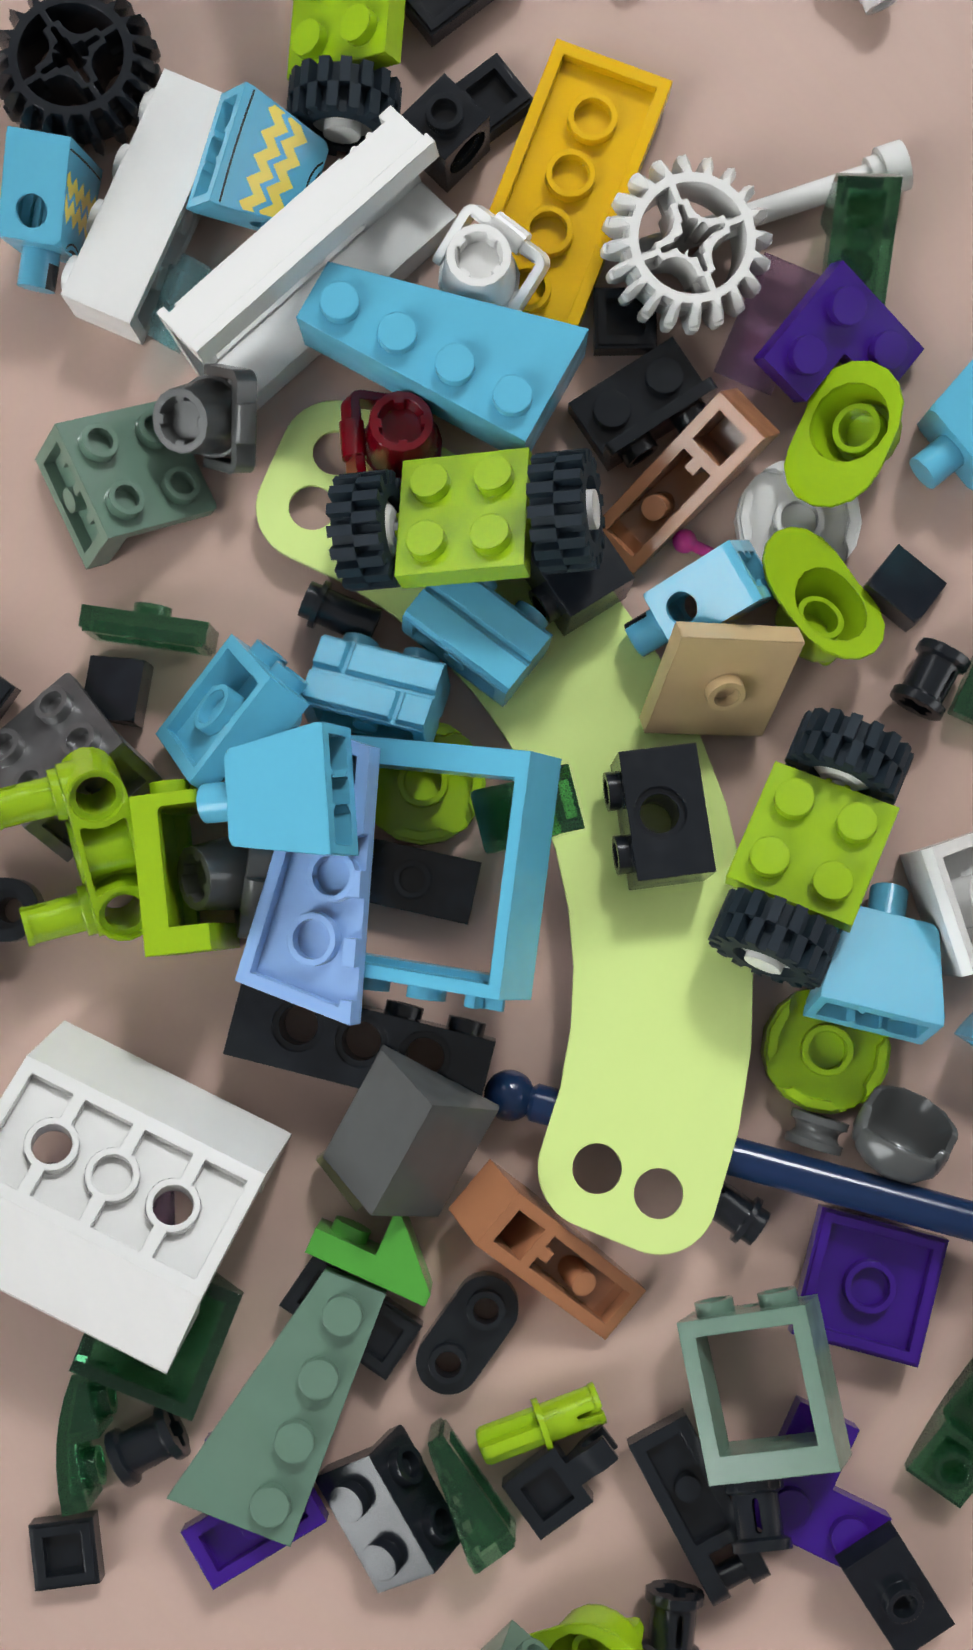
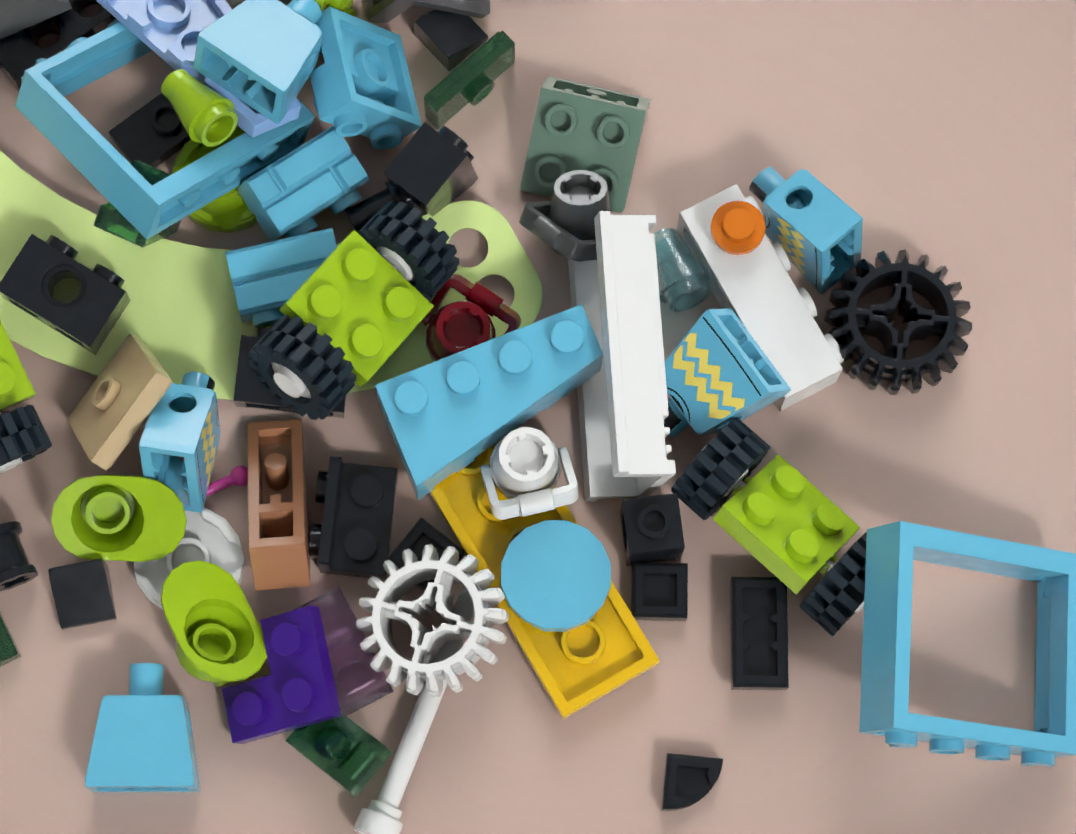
camera: 120 degrees right, 10 degrees down
(104, 249) = (737, 227): none -> orange plate
(270, 574) = (432, 168): none -> black slope
(394, 813) = (202, 111): none -> lime cone
(557, 175) = (555, 575): none -> medium azure tile

